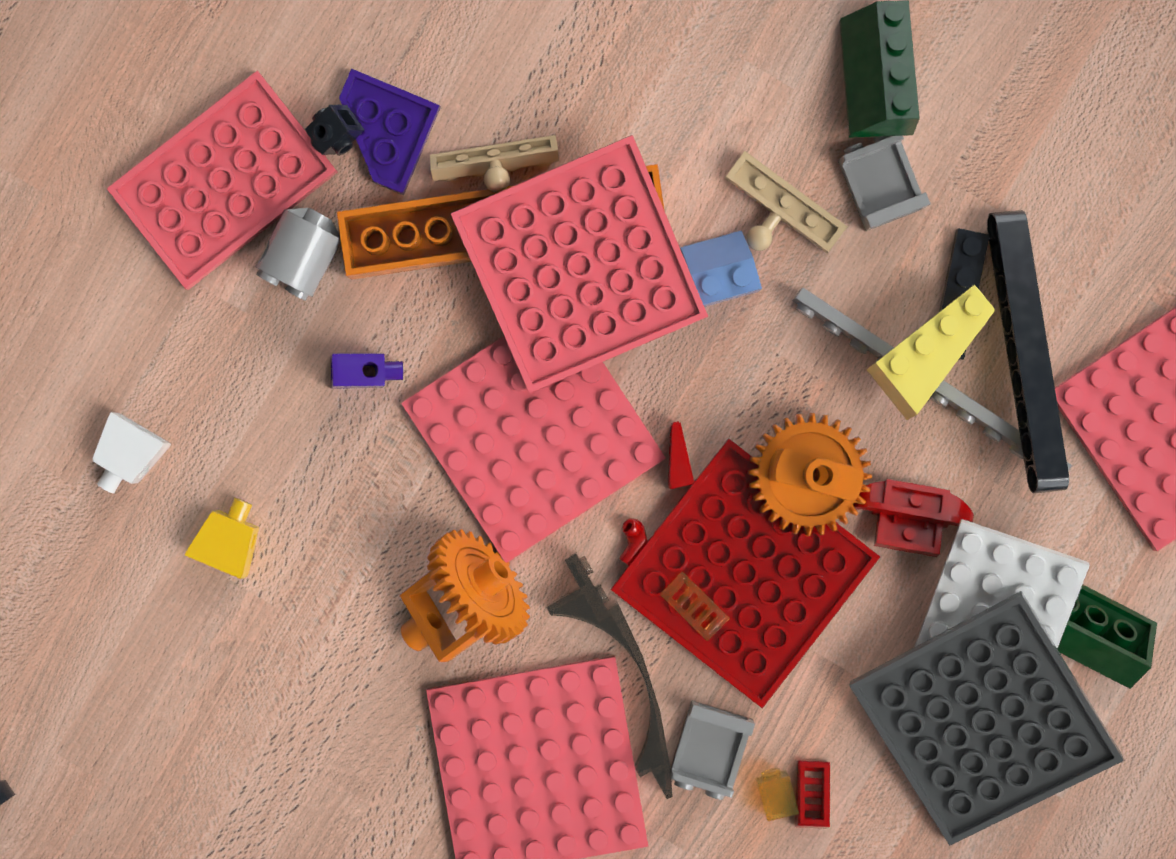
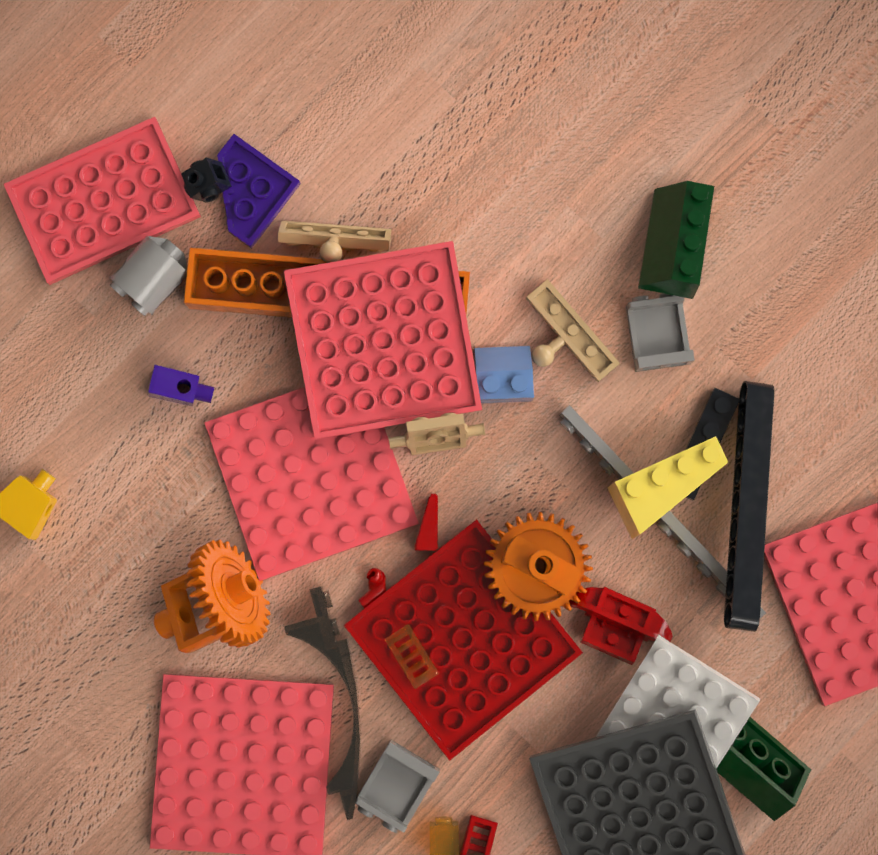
camera: 15 degrees right, 5 degrees down
(663, 355) = (436, 434): none -> tan plate

